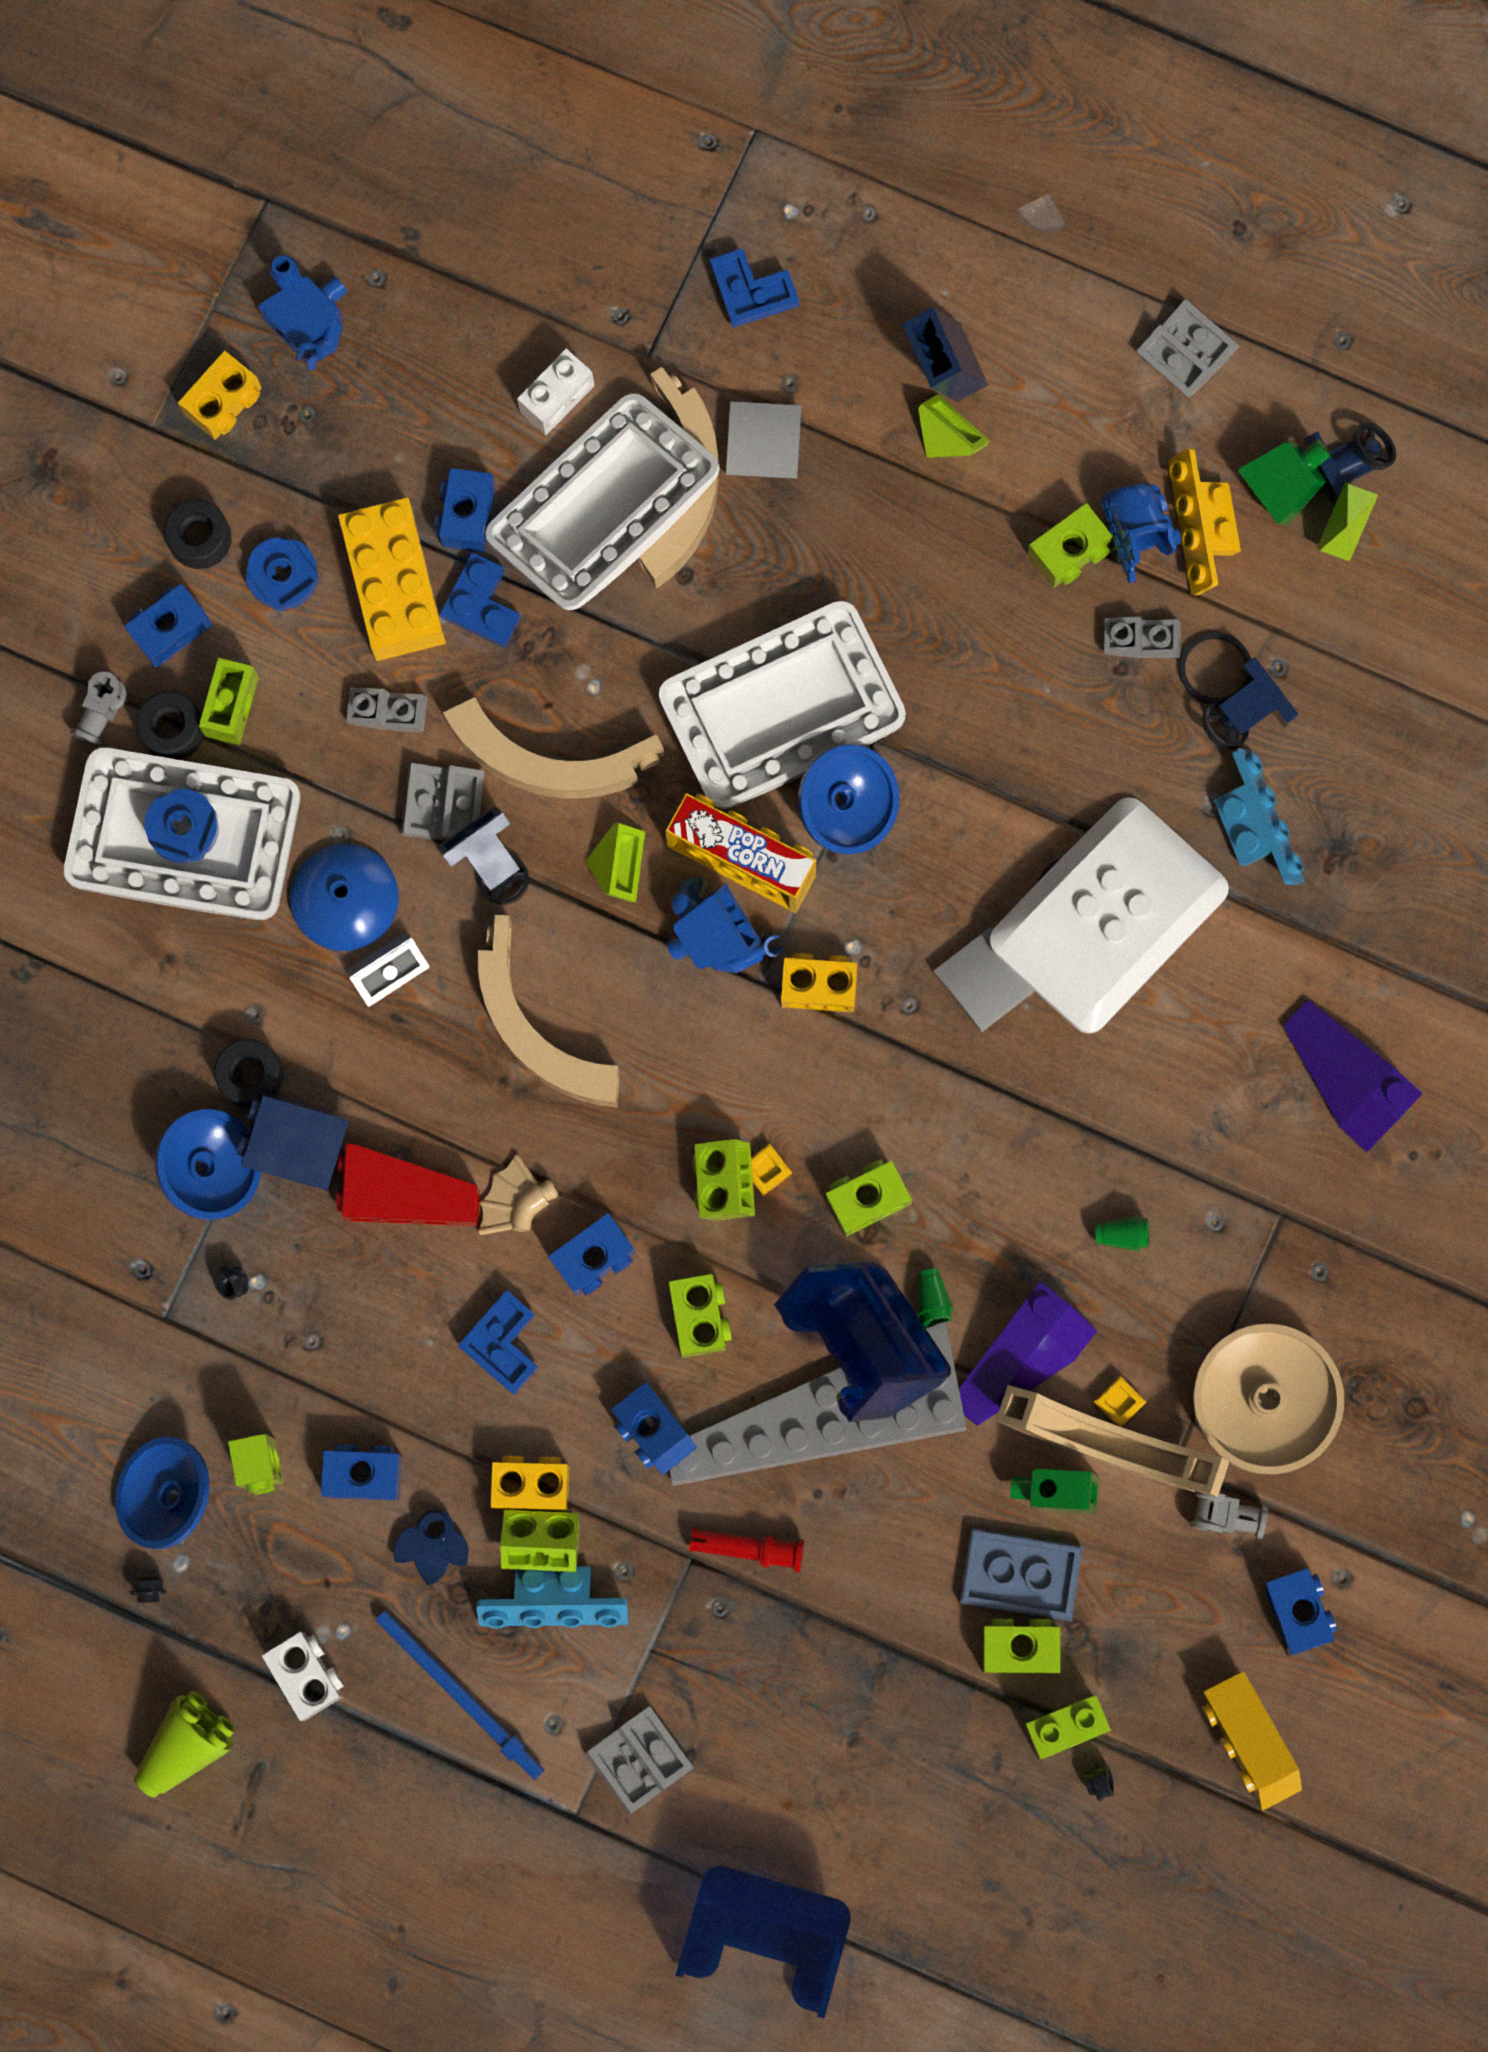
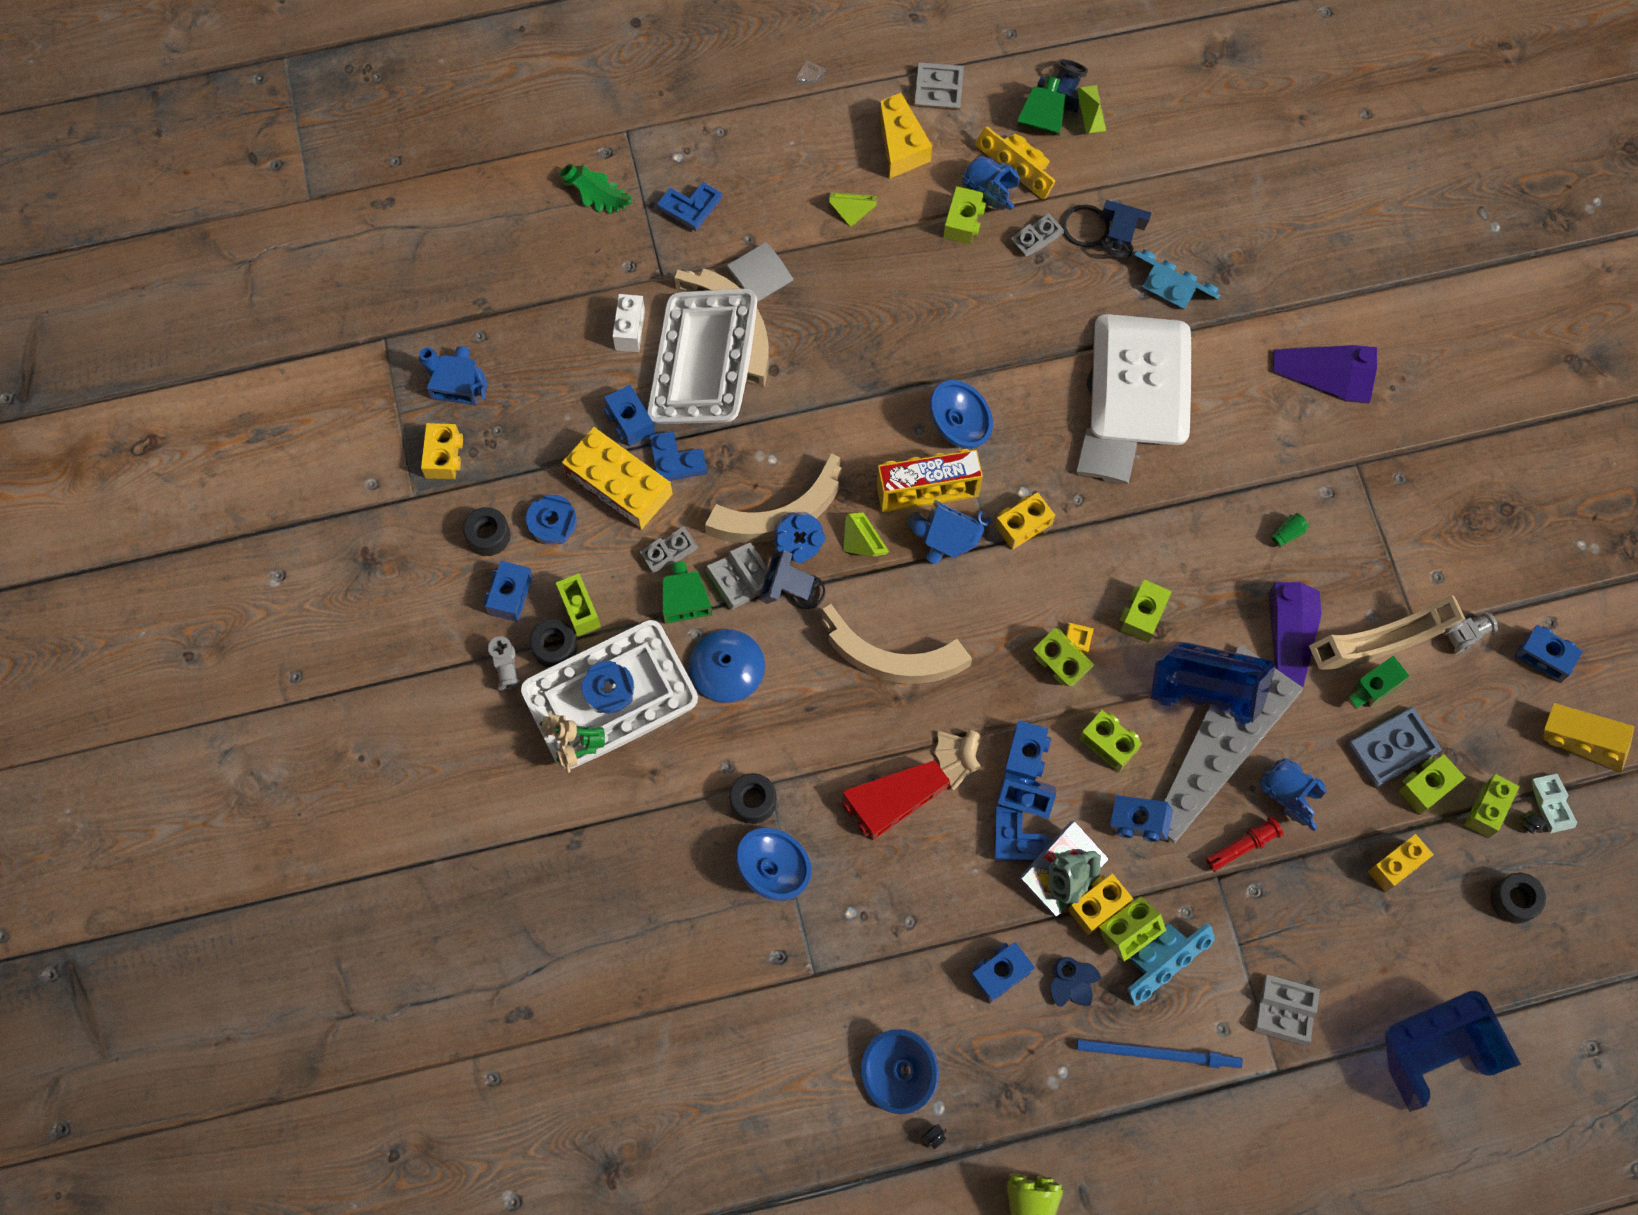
camera: 45 degrees left, 10 degrees down
(86, 845) = (566, 731): none -> tan plant
(231, 1282) = (838, 922): black plate -> none
(256, 1464) = (940, 1010): lime brick -> none
(292, 1140) = (811, 813): dark blue brick -> none
(295, 1681) = (1063, 1121): white brick -> none
(358, 778) = (684, 595): none -> green torso
(387, 968) = (782, 685): light grey slope -> none
(515, 1432) = (1070, 875): none -> sand green piece
(522, 1416) = (1035, 877): none -> tile
(537, 826) = (799, 522): none -> blue plate
(547, 1303) = (1026, 795): none -> blue brick
(654, 183) = (594, 188): none -> green plant
(780, 703) = (884, 392): white wedge -> none
(851, 1528) = (1290, 787): none -> blue helmet
(903, 1706) = (1400, 863): none -> yellow brick
(933, 1298) = (1223, 637): green cone -> none
(945, 354) = (823, 162): dark blue brick -> none
(1028, 1851) = (1532, 890): none -> black tyre
(1078, 387) = (903, 136): none -> yellow wedge
(1119, 1402) = (1362, 618): yellow tile -> none
(1147, 1780) = (1552, 803): none -> light aqua slope
(1268, 1399) = (1438, 555): tan dish -> none

